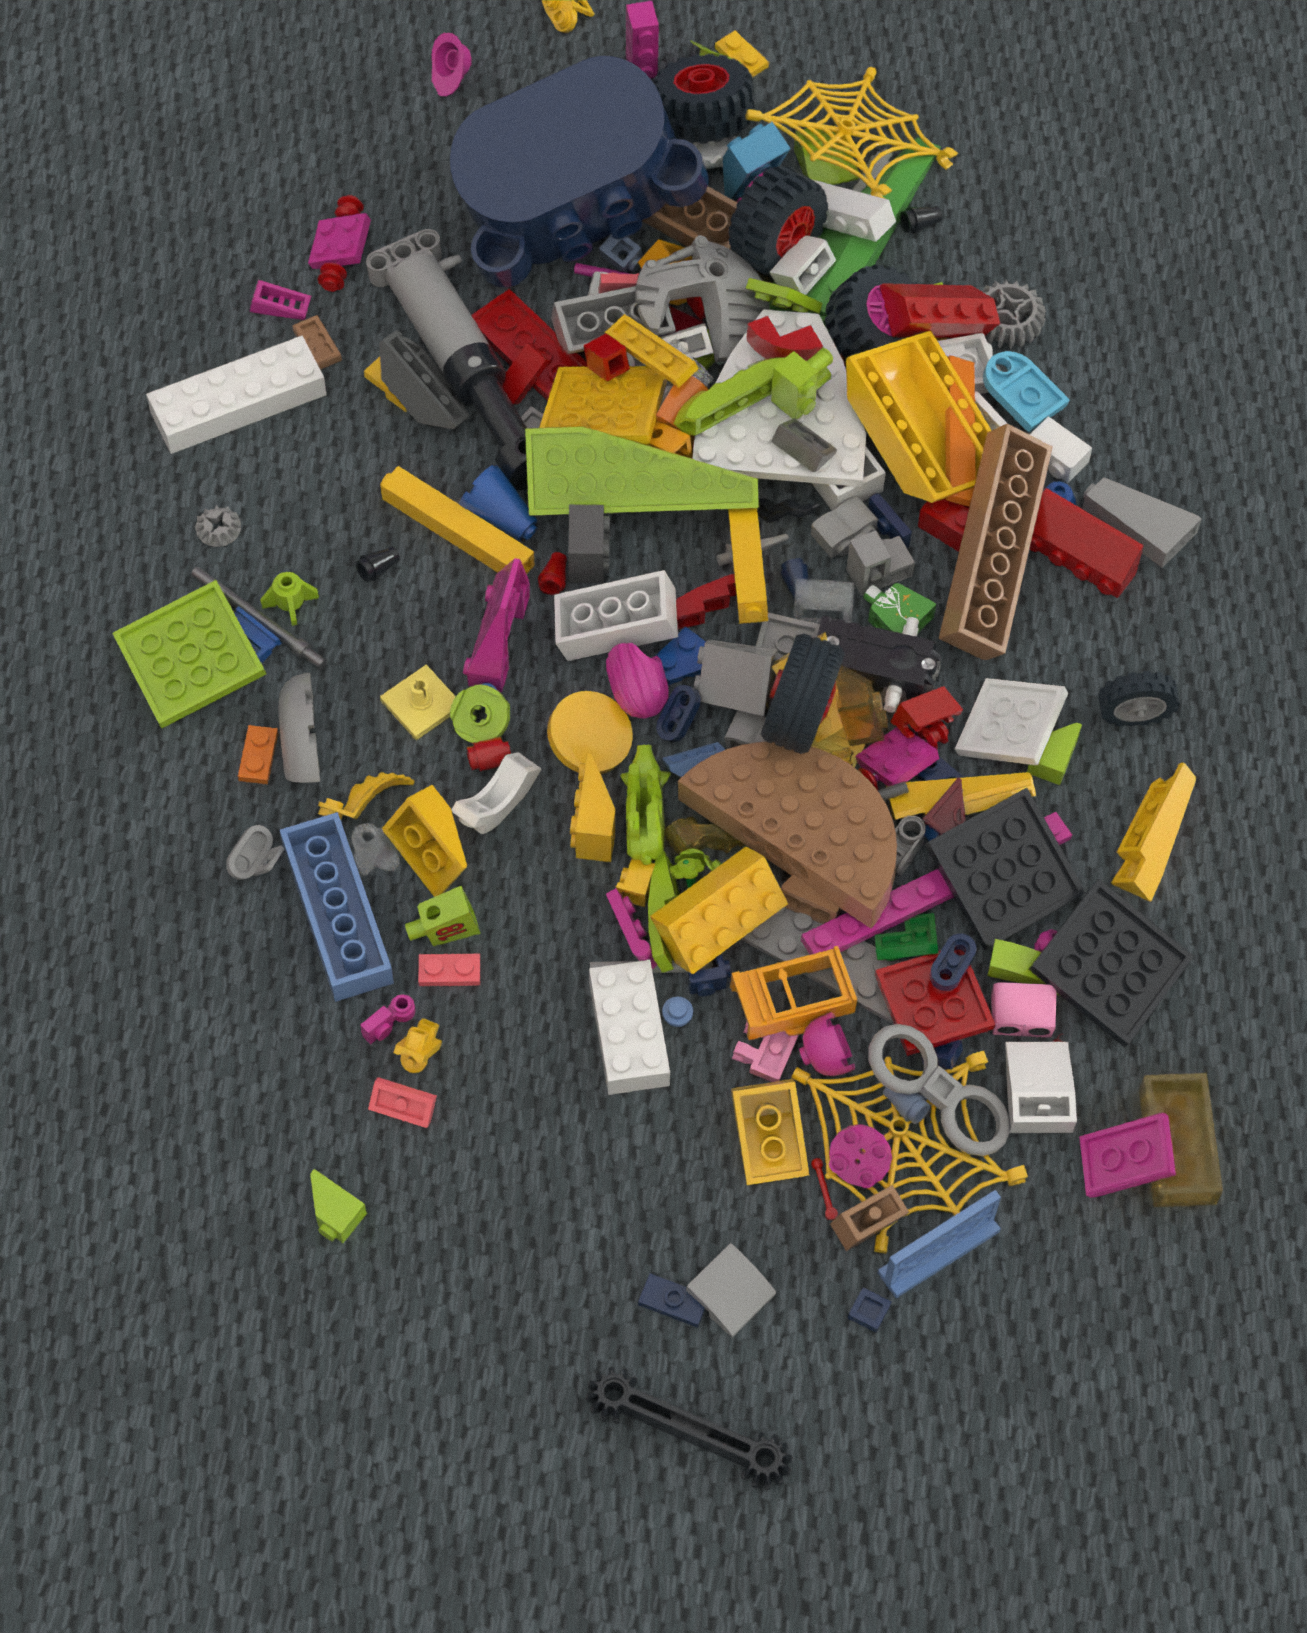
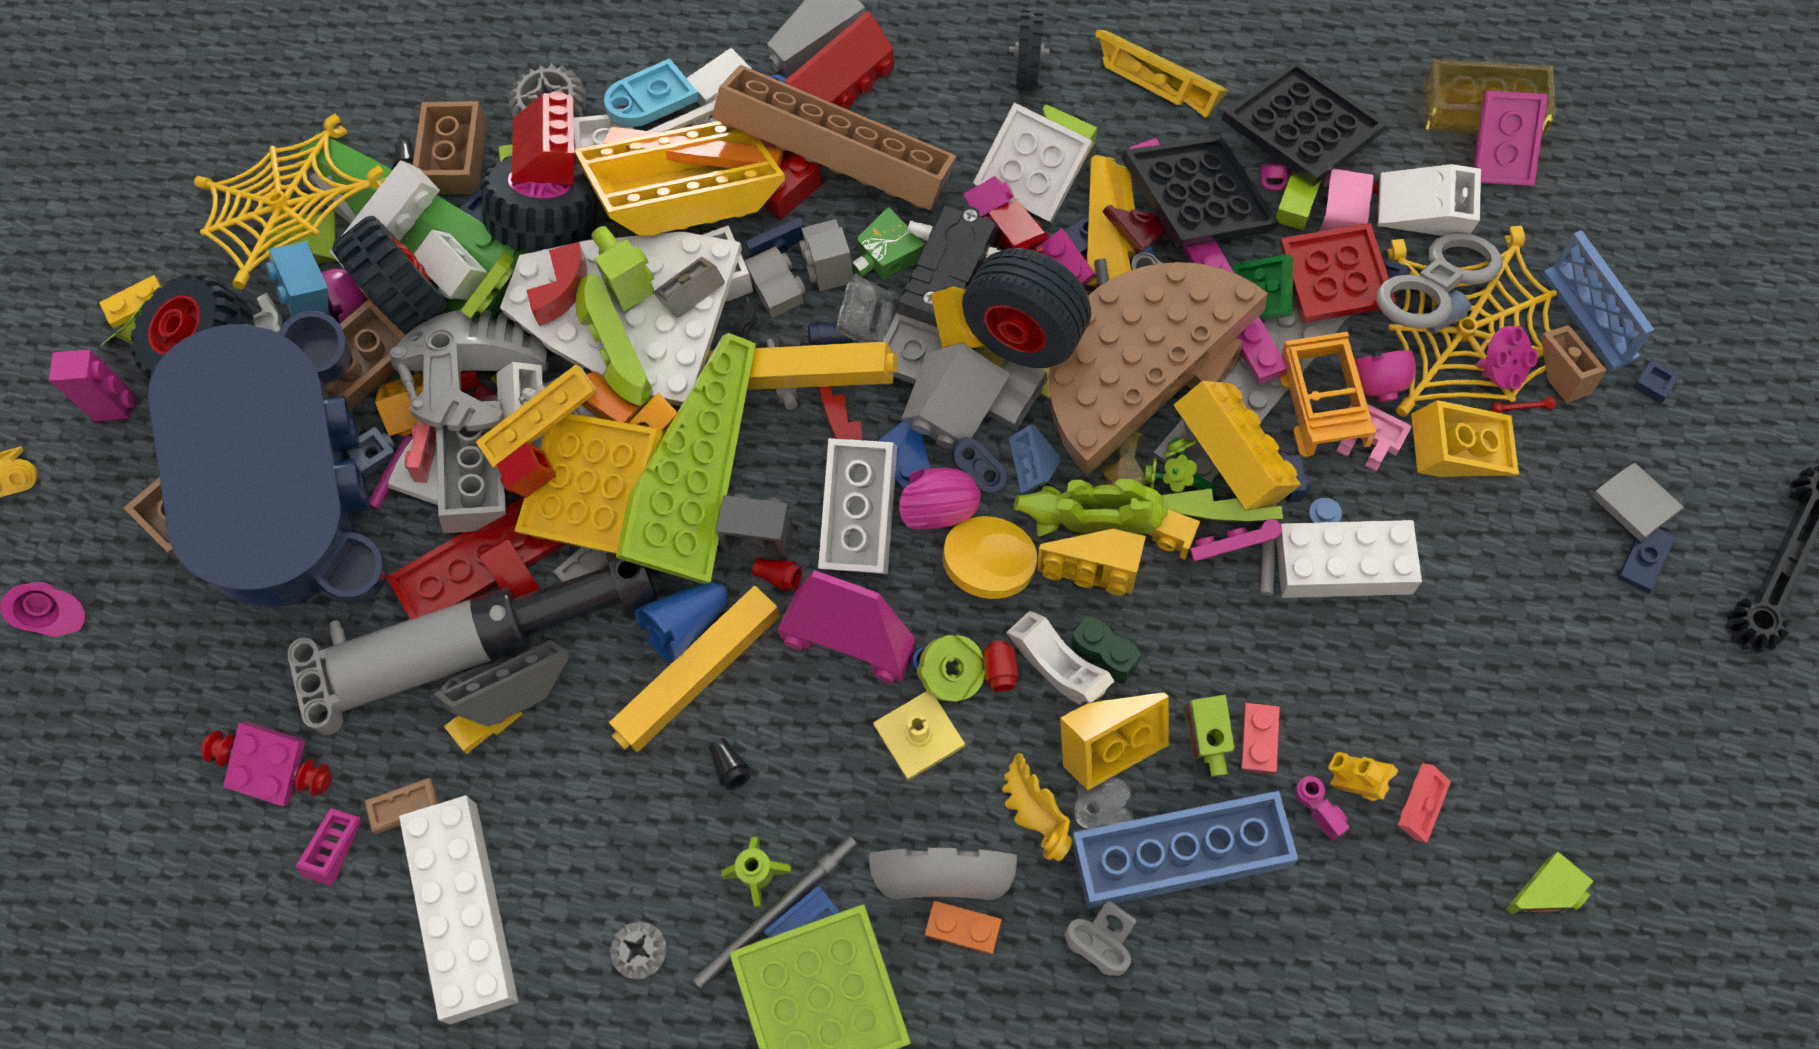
camera: 75 degrees left, 5 degrees up
(516, 830) = (1097, 645): none -> dark green brick
(936, 246) = (451, 145): none -> medium nougat brick
(952, 964) = (1310, 243): dark blue plate -> none
(964, 689) = (989, 195): none -> dark pink brick

